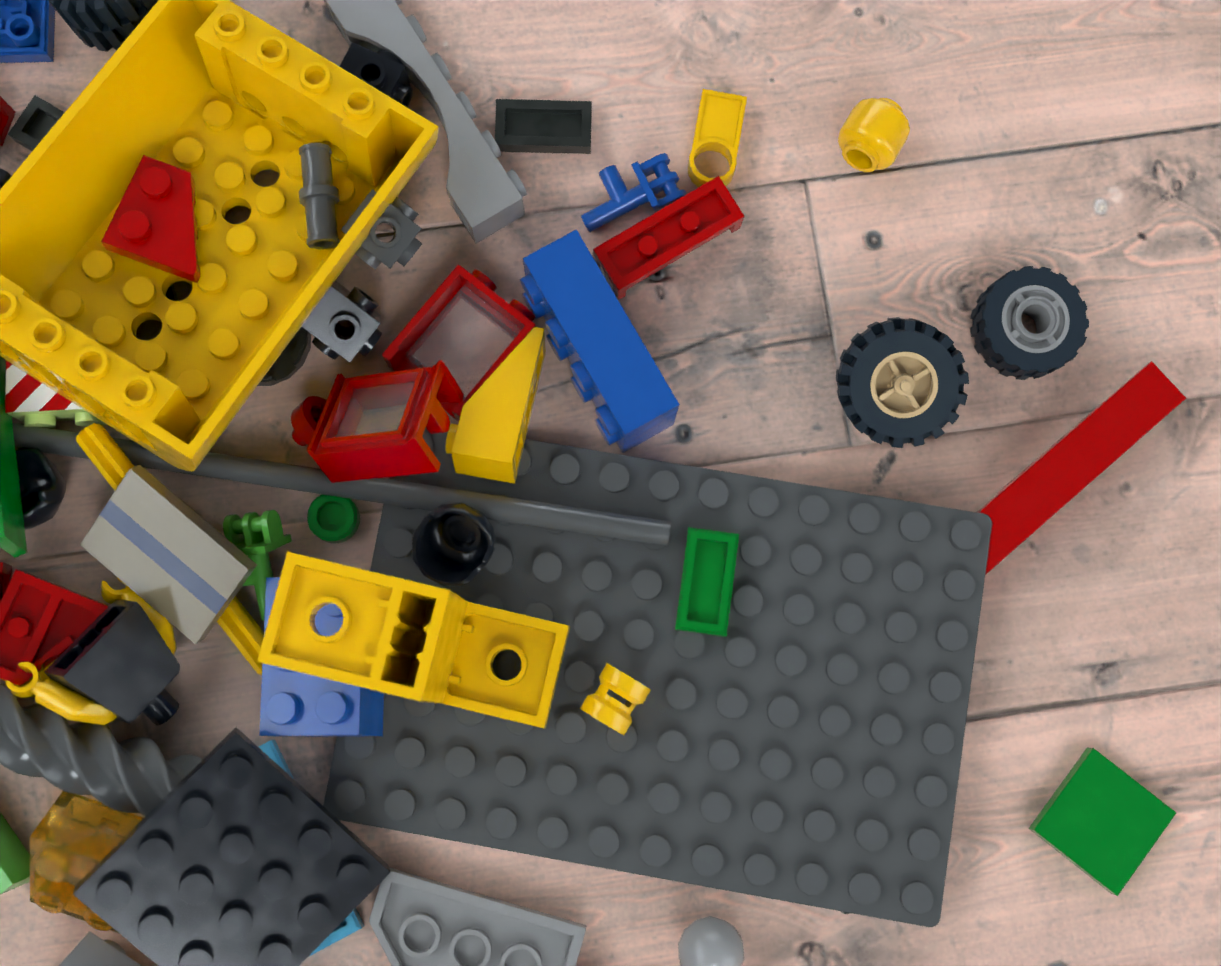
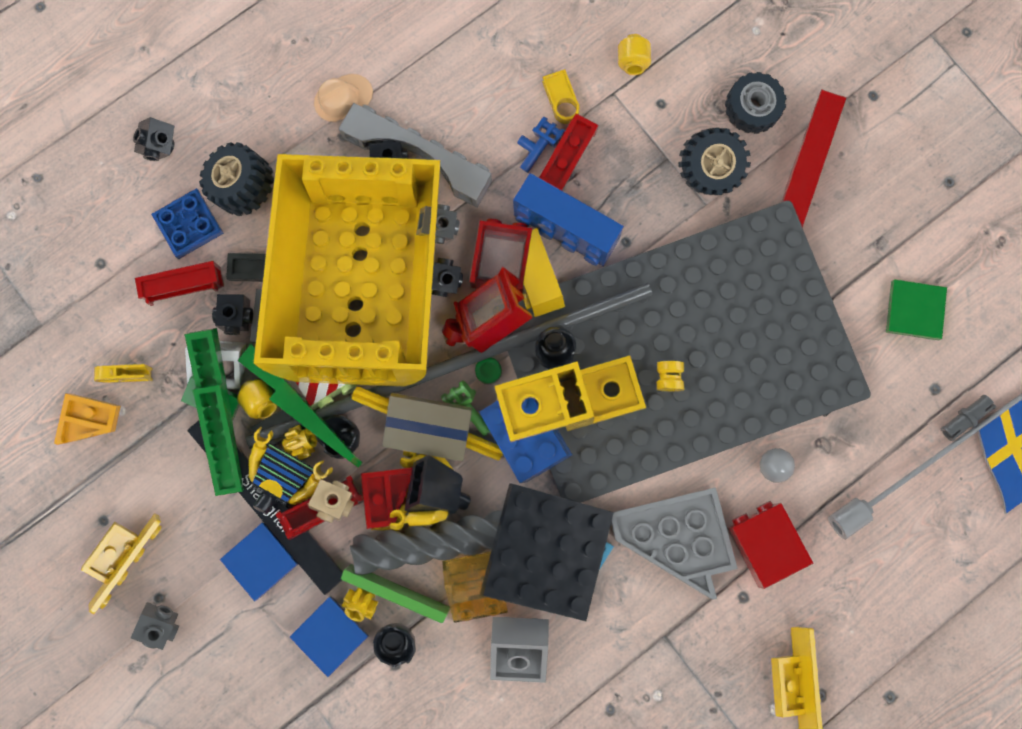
camera: 20 degrees left, 0 degrees up
(157, 220) = (330, 277): red wing -> none
(319, 196) = (397, 224): dark grey pin -> none
(543, 126) = (477, 134): pearl dark grey tile -> none
(707, 582) = (679, 301): green tile -> none

